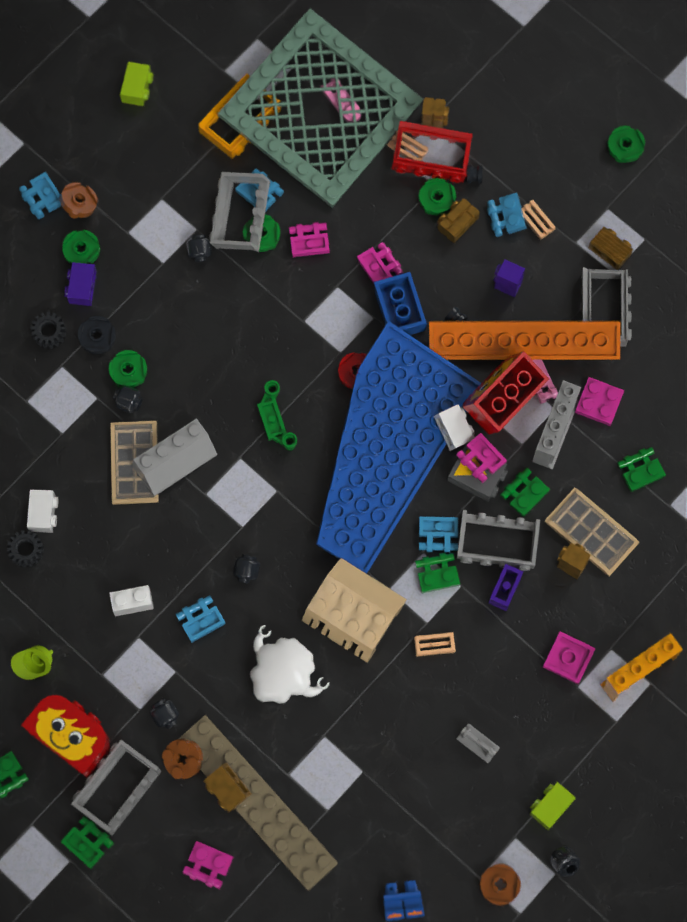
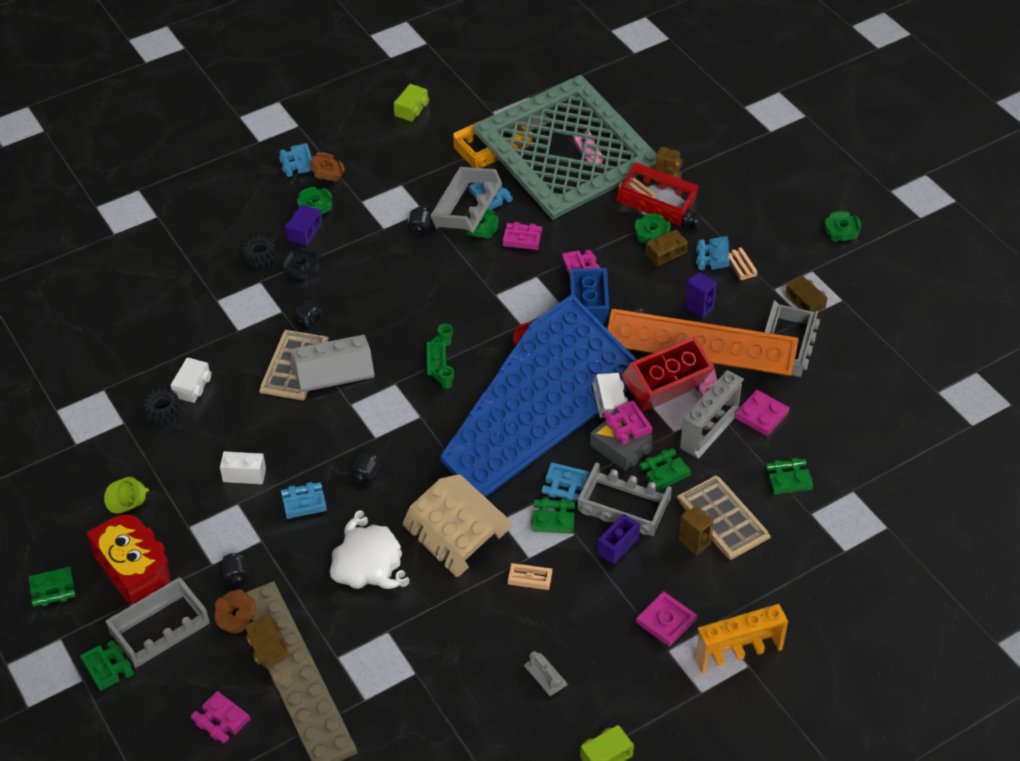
camera: 15 degrees right, 25 degrees down
(131, 379) = (322, 285): green plate -> none

